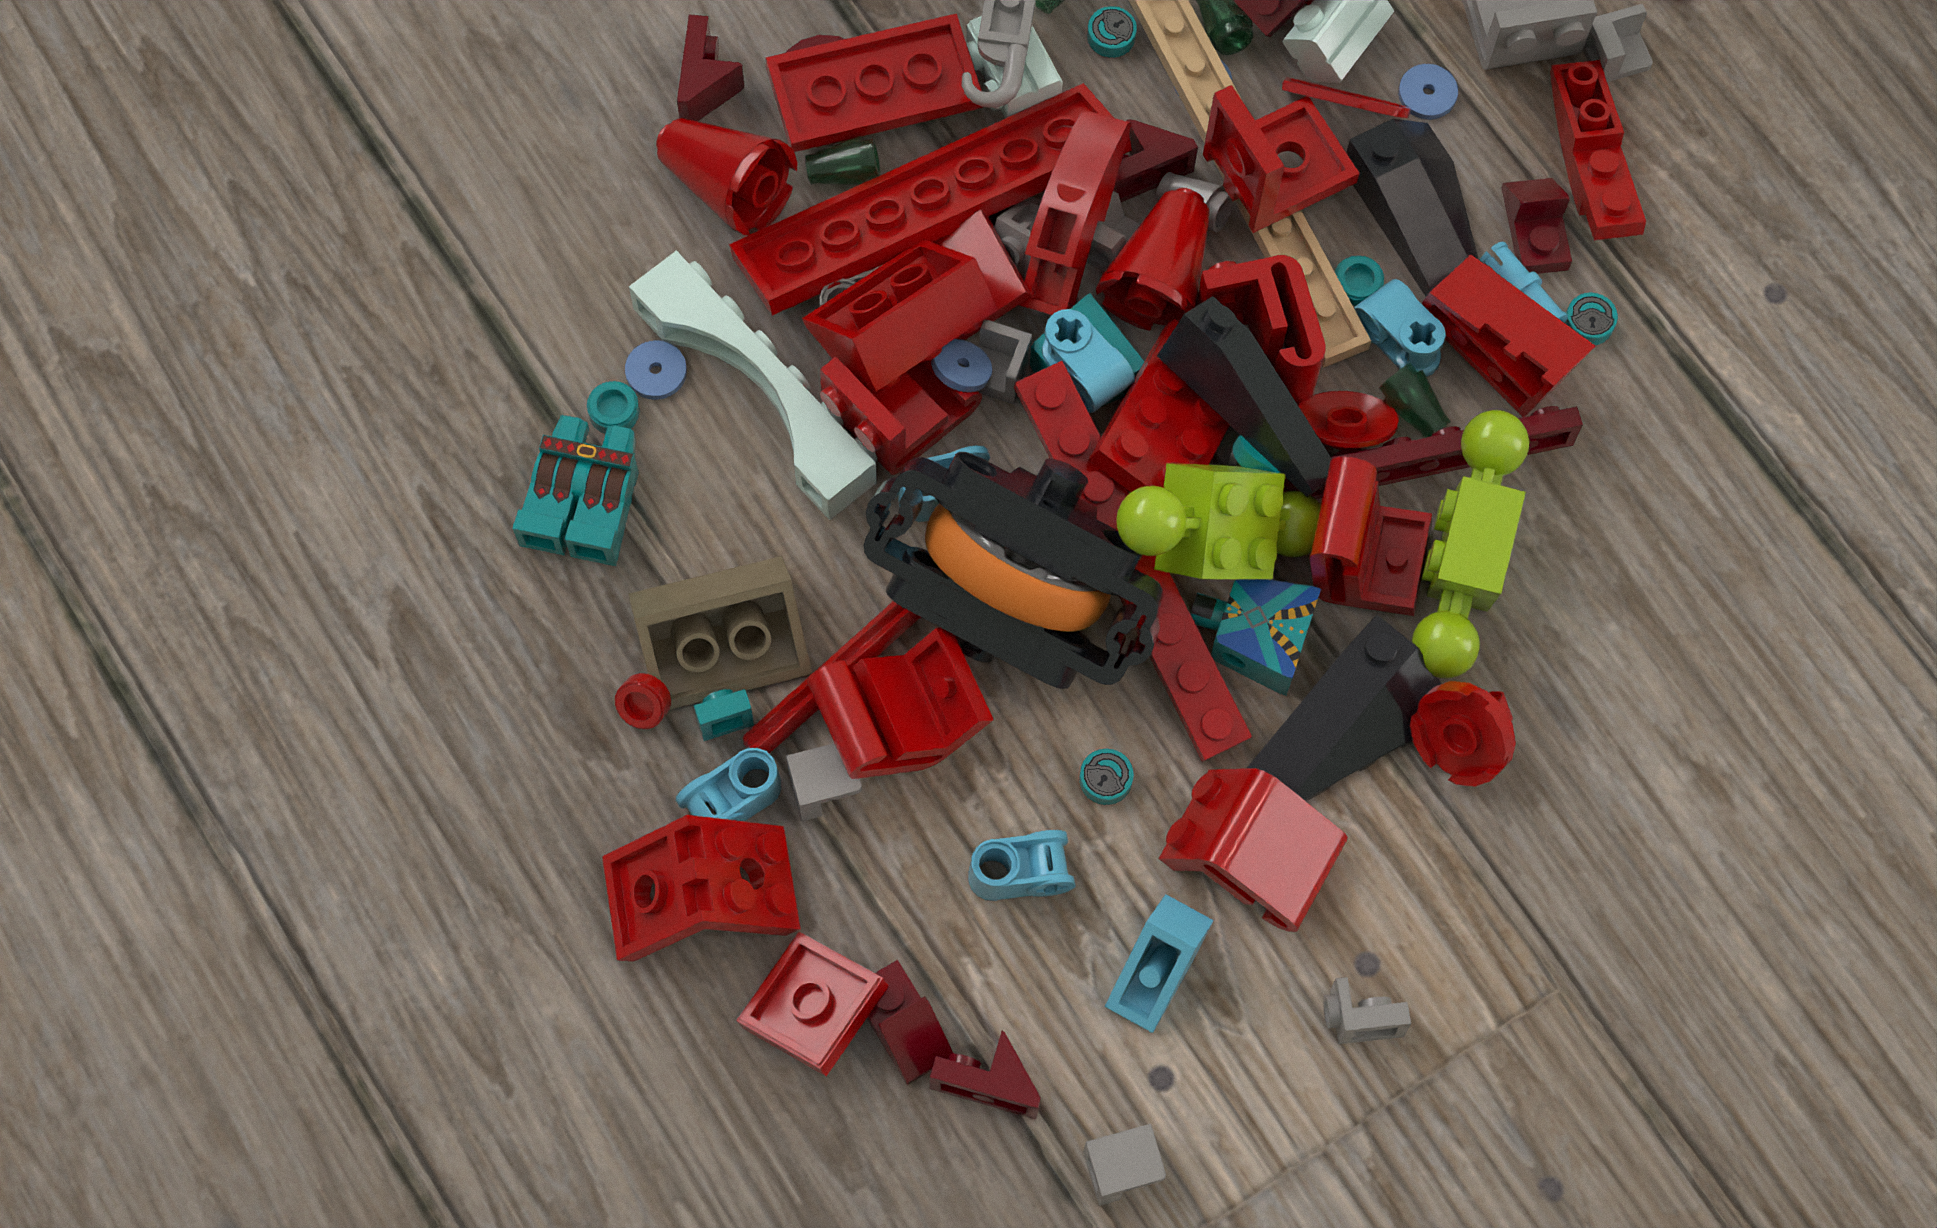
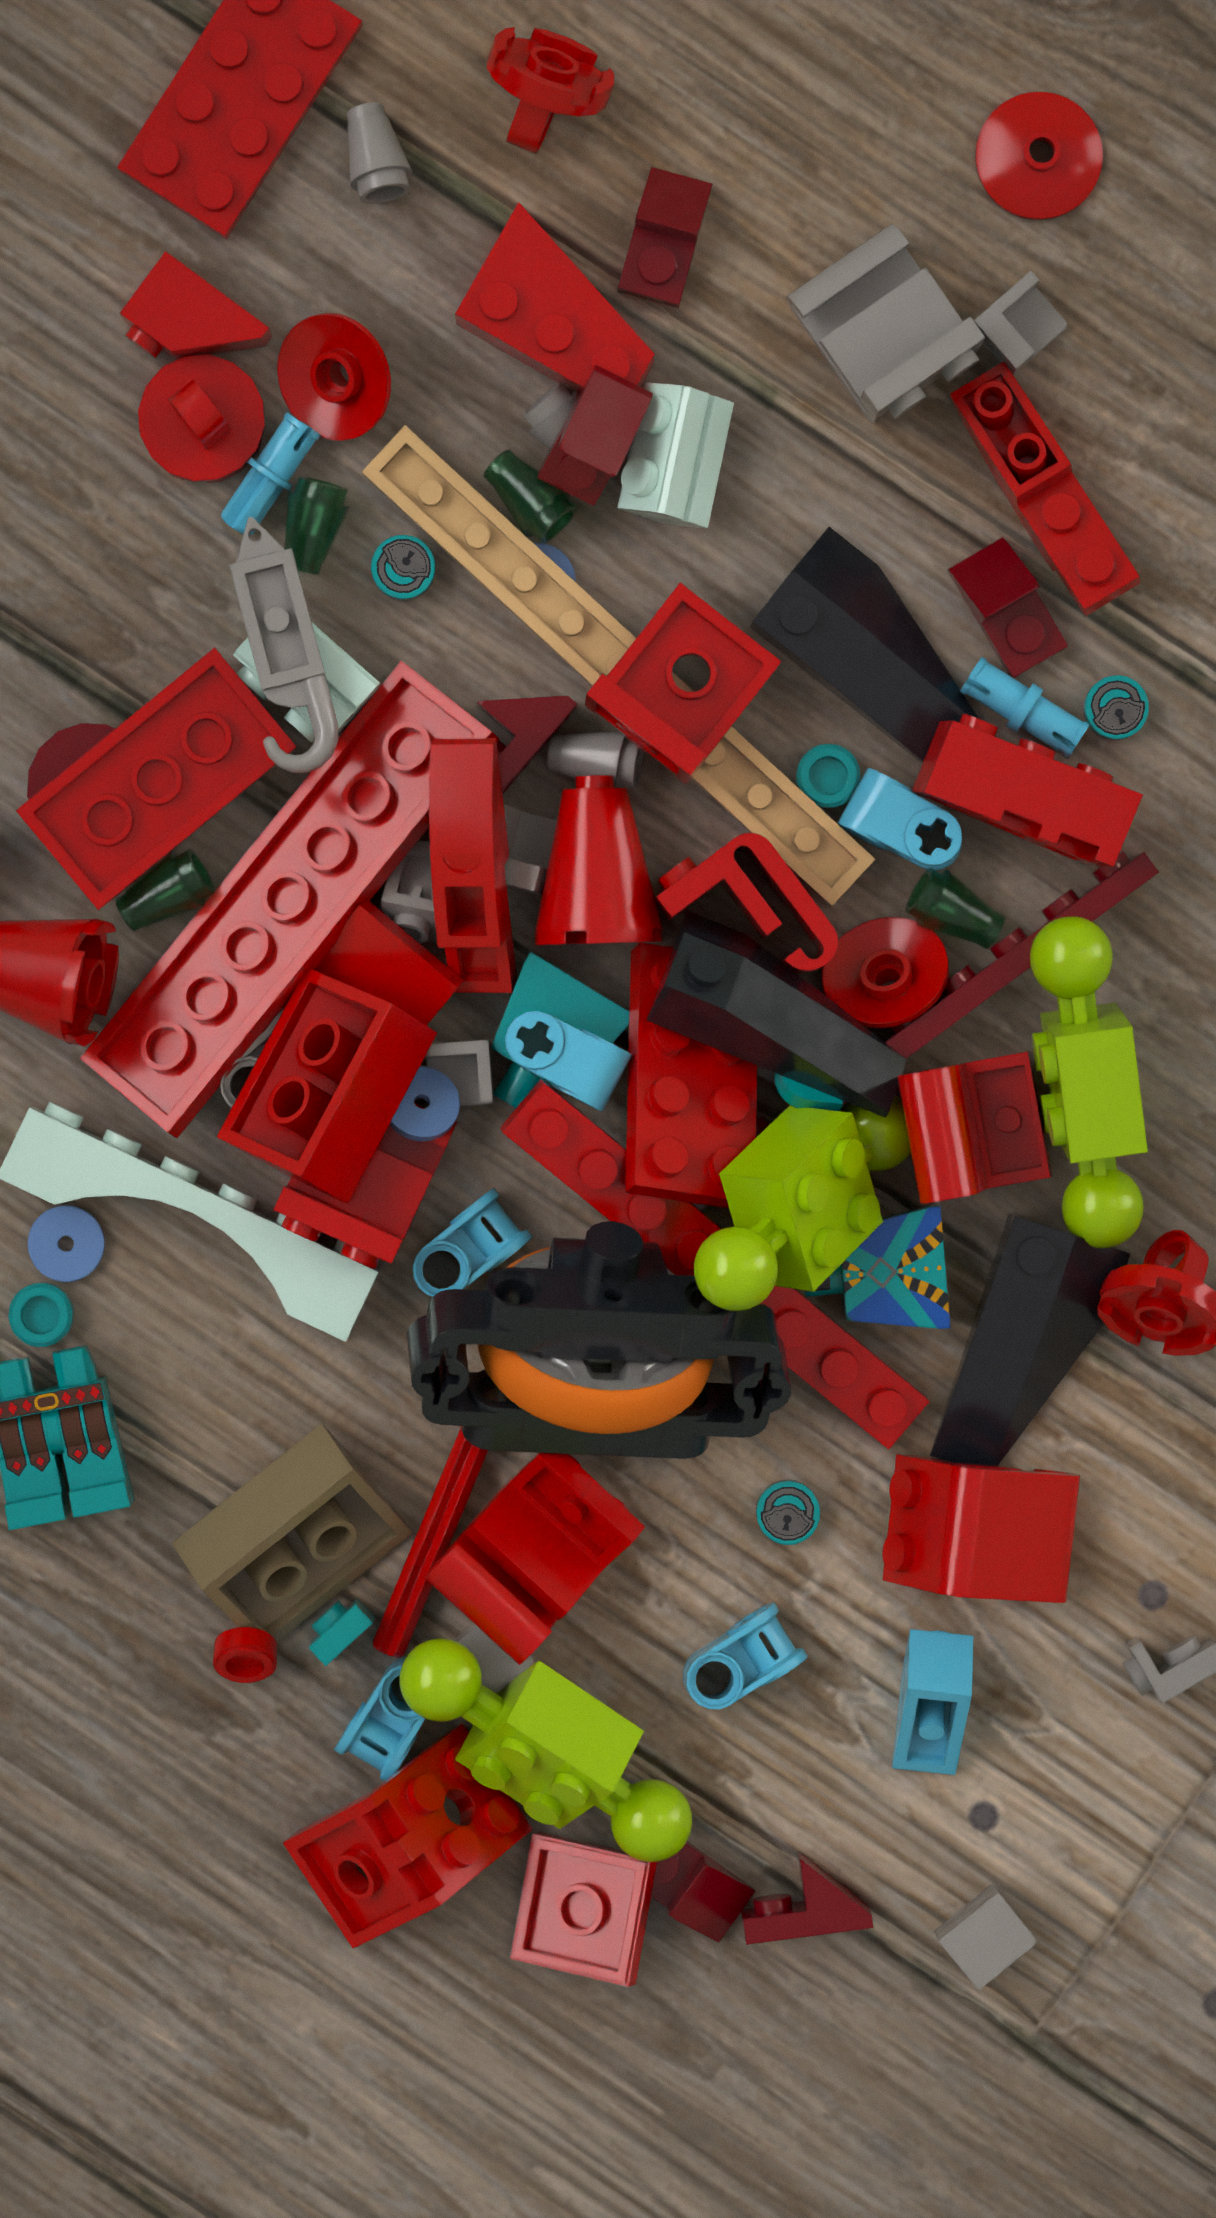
camera: 20 degrees left, 20 degrees up
(843, 851) = (547, 1747): none -> lime brick
(1345, 97) = (719, 568): red window -> none
(1430, 77) = (806, 499): medium blue wheel -> none

